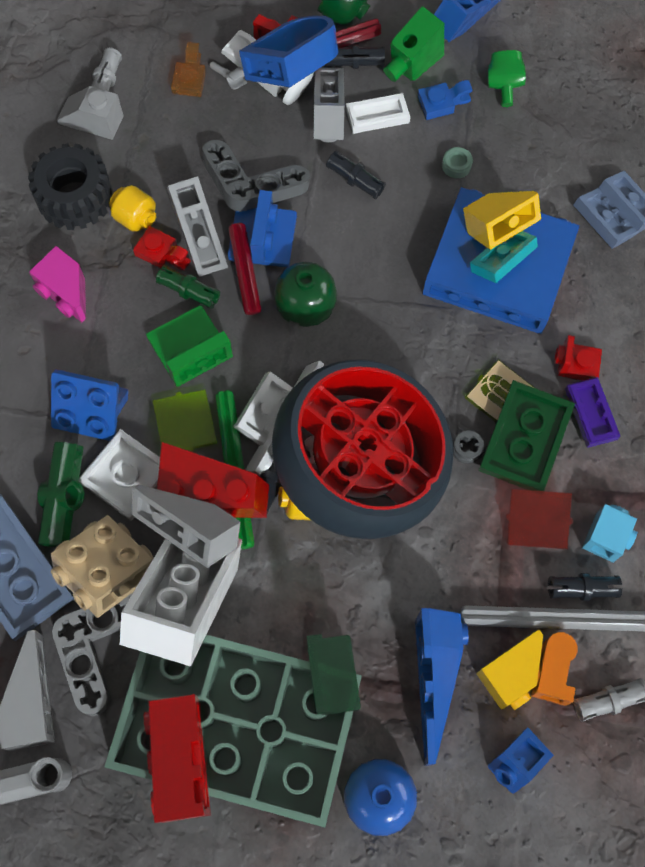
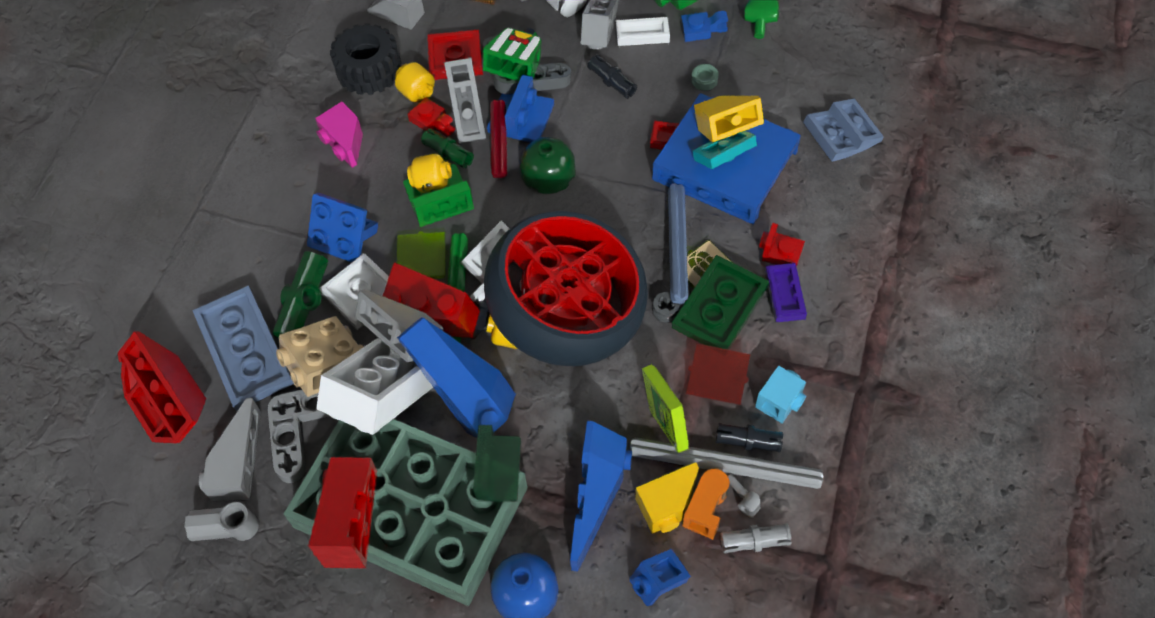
camera: 15 degrees right, 10 degrees down
(168, 163) = (452, 47): none -> red tile
(176, 324) = (429, 173): none -> yellow head
(243, 163) = (513, 53): none -> green torso
(270, 574) = (462, 379): none -> blue wedge
(426, 239) = (661, 133): none -> red tile
(468, 371) = (677, 244): none -> sand blue axle
(497, 573) = (665, 408): none -> lime tile
(599, 658) = (751, 502): none -> light grey hand

